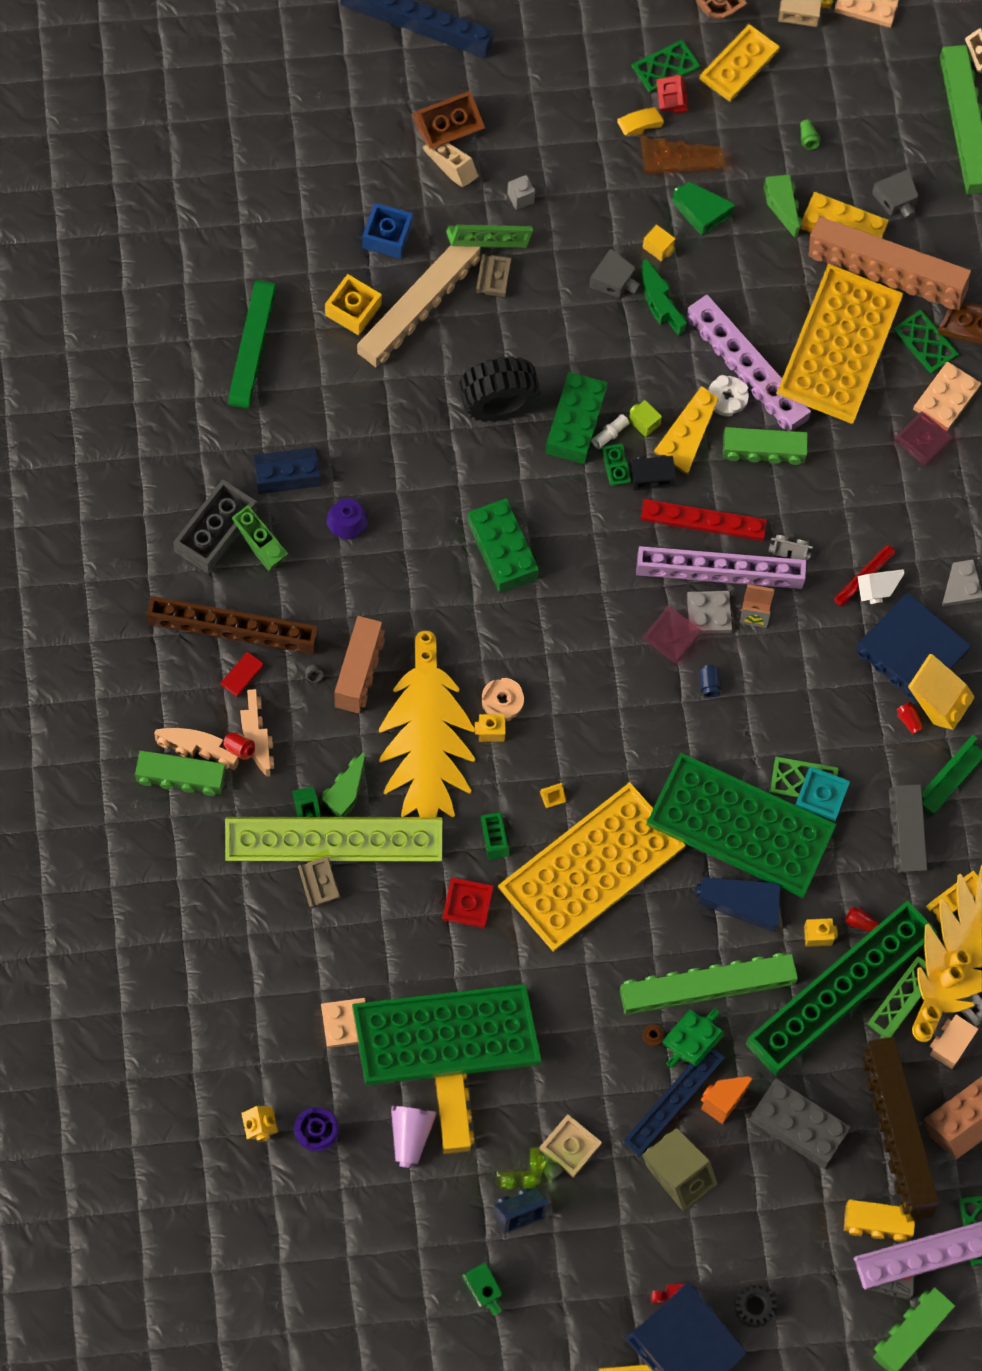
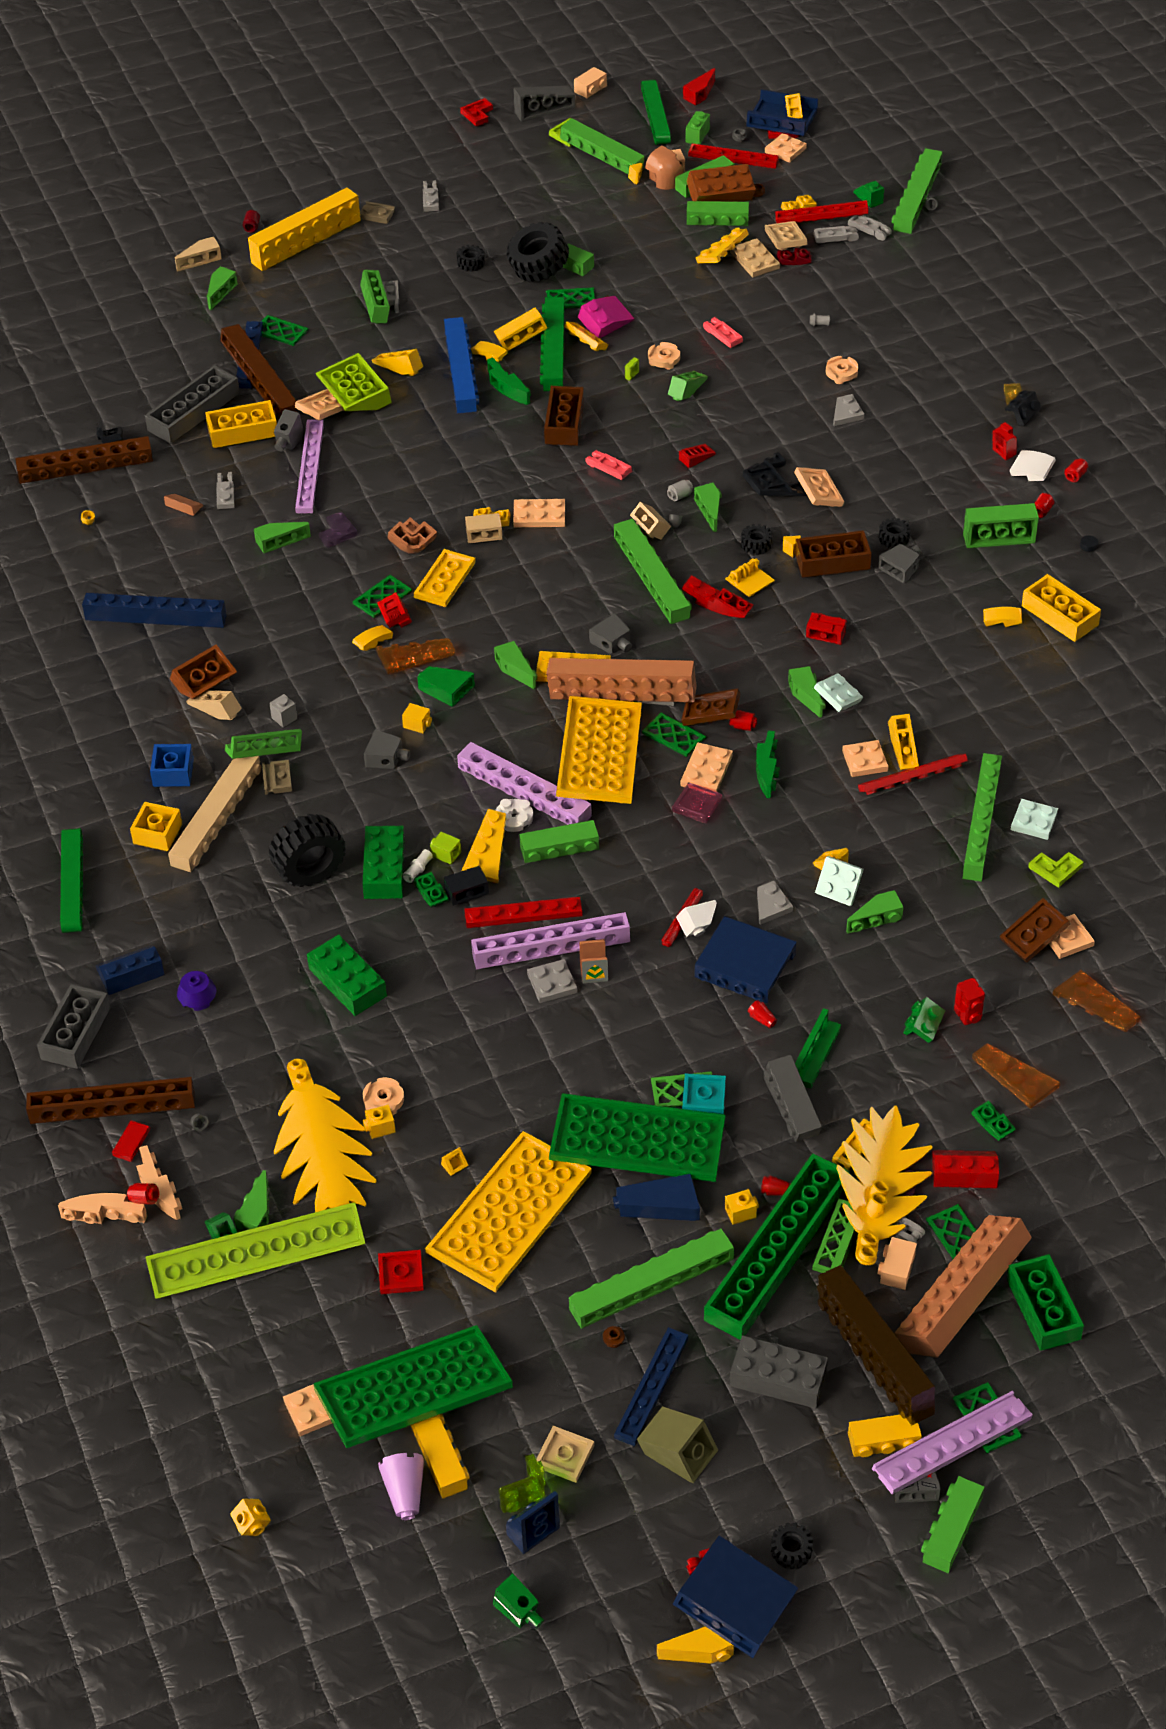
camera: 10 degrees left, 20 degrees down
(180, 773) = (92, 1235): bright green brick -> none
(259, 538) = (119, 1024): bright green slope -> none
(316, 1129) = (308, 1505): dark purple cone -> none
(319, 882) = (252, 1292): dark tan plate -> none
(359, 665) = (240, 1100): nougat brick -> none
(499, 848) = (410, 1211): green slope -> none
(552, 1170) = (554, 1480): hinge -> none
(656, 294) = (427, 757): green slope -> none
(672, 634) = (523, 1005): clear pink plate -> none
(693, 1038) = (652, 1327): green plate -> none
(710, 681) = (570, 1032): dark blue brick -> none
(724, 1096) = (699, 1366): orange slope -> none
(798, 549) = (600, 909): light grey hinge -> none
(809, 136) = (522, 614): bright green cone -> none
(941, 693) = (782, 983): yellow slope -> none

